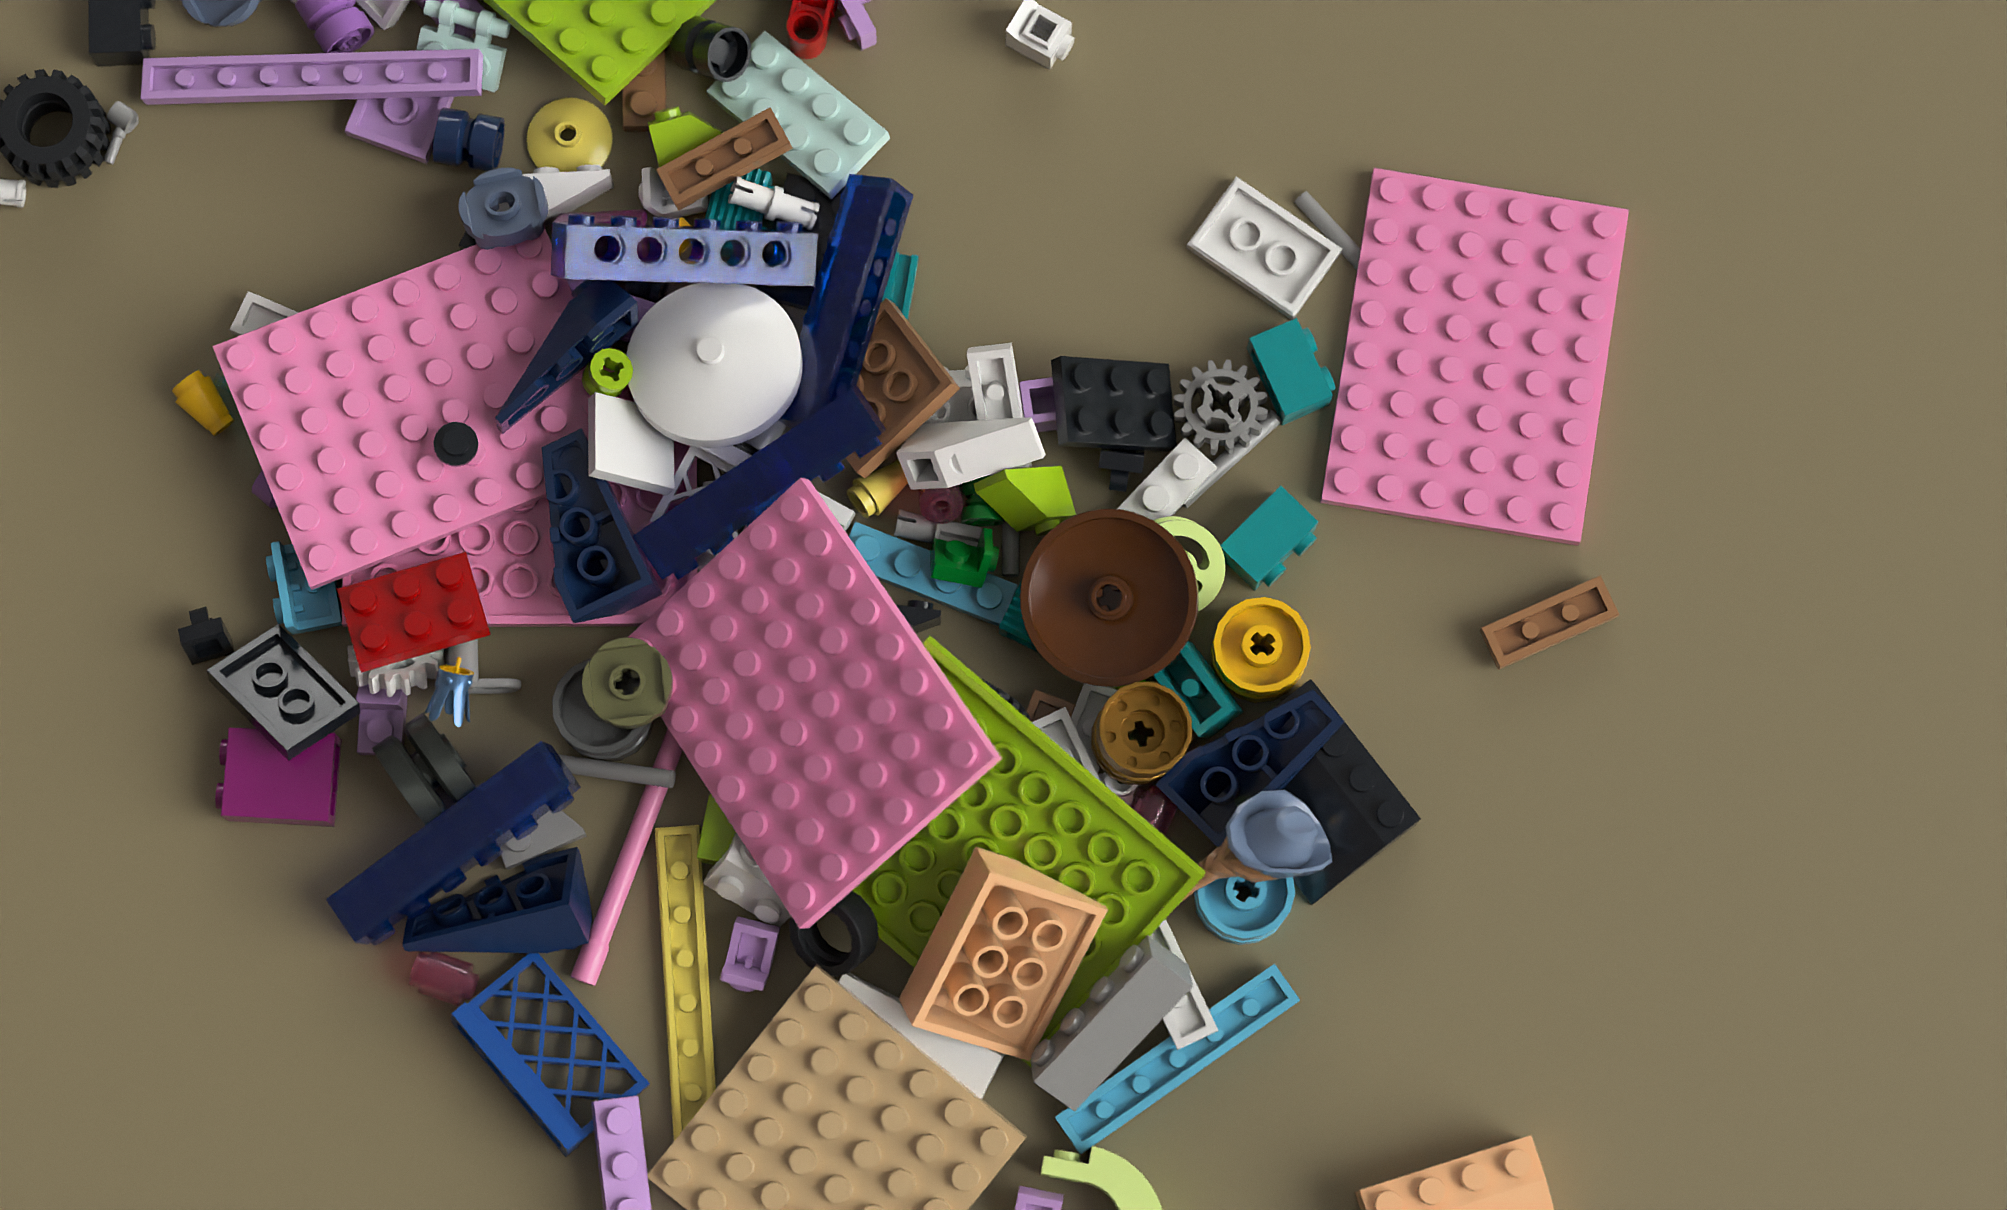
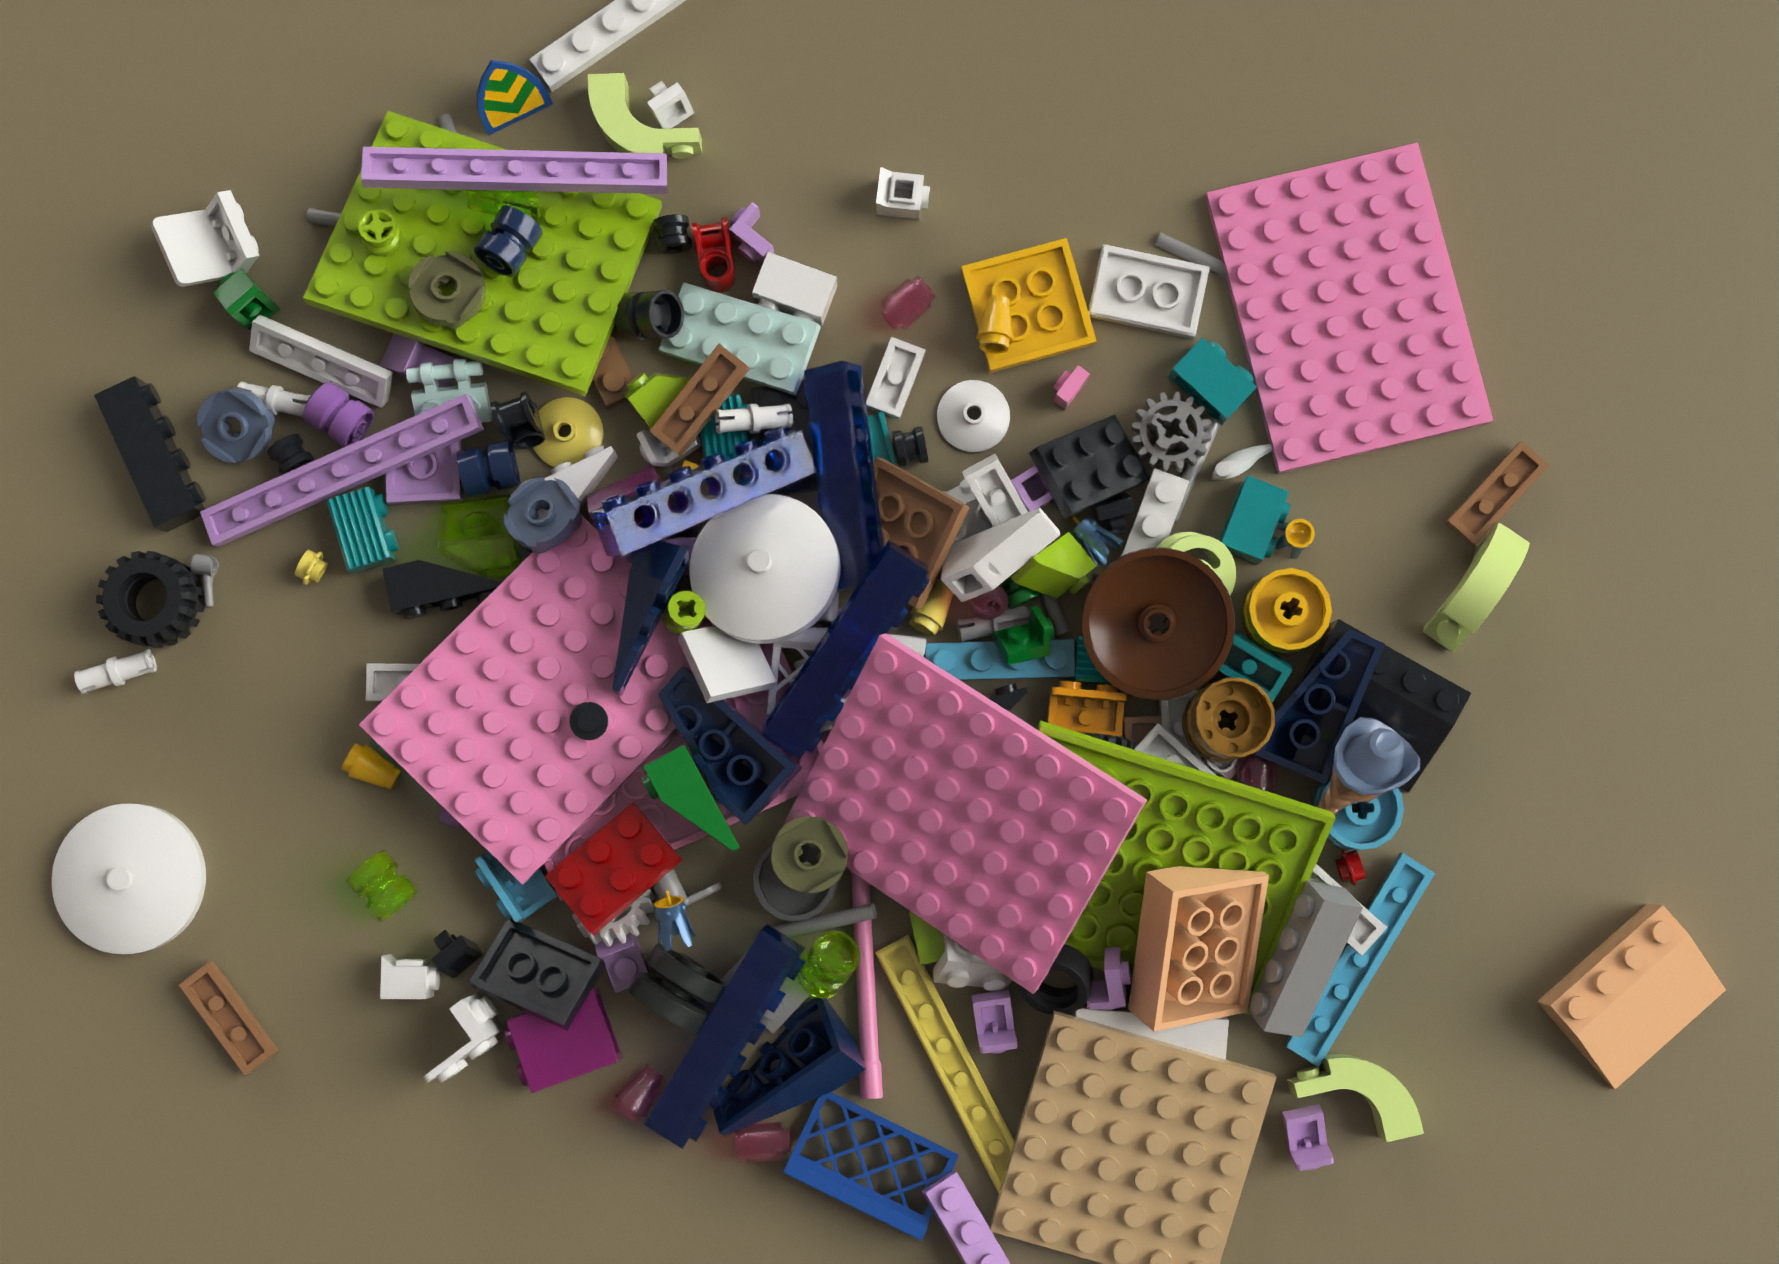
camera: 20 degrees left, 5 degrees up
(144, 642) = (408, 978): none -> white window
(160, 530) = (382, 885): none -> clear neon green wheel
(200, 729) = (479, 1022): none -> white bracket
(234, 166) = (311, 567): none -> light yellow plate
(264, 36) = (289, 453): none -> black wheel
(307, 149) = (362, 530): none -> teal brick
(333, 869) = (638, 1094): none -> clear pink cone
(347, 236) = (425, 585): none -> black slope
(424, 207) = (476, 536): none -> clear neon green slope
(522, 554) = (684, 791): none -> green slope
(523, 103) = (519, 421): none -> black piece
(598, 814) = (829, 964): none -> clear neon green wheel
(880, 86) = (794, 288): none -> white brick
(899, 957) = (1110, 992): none -> lavender bracket
(931, 305) = (910, 446): none -> black wheel
(947, 226) = (895, 378): none -> white plate
(995, 151) = (907, 303): none -> clear pink brick
(999, 661) = (1087, 709): none -> light orange bracket
(1010, 322) = (967, 433): none -> white dish
(1077, 215) = (995, 327): none -> yellow cone
(1081, 477) = (1090, 534): none -> flat silver piece
(1125, 208) = (1044, 302): none -> yellow plate
(1132, 313) = (1069, 386): none -> bright pink plate
(1211, 956) = (1350, 867): none -> red plate
(1282, 471) = (1239, 462): none -> white bar
(1308, 572) = (1297, 534): none -> yellow piece
(1481, 711) = (1480, 588): none -> yellowish green arch

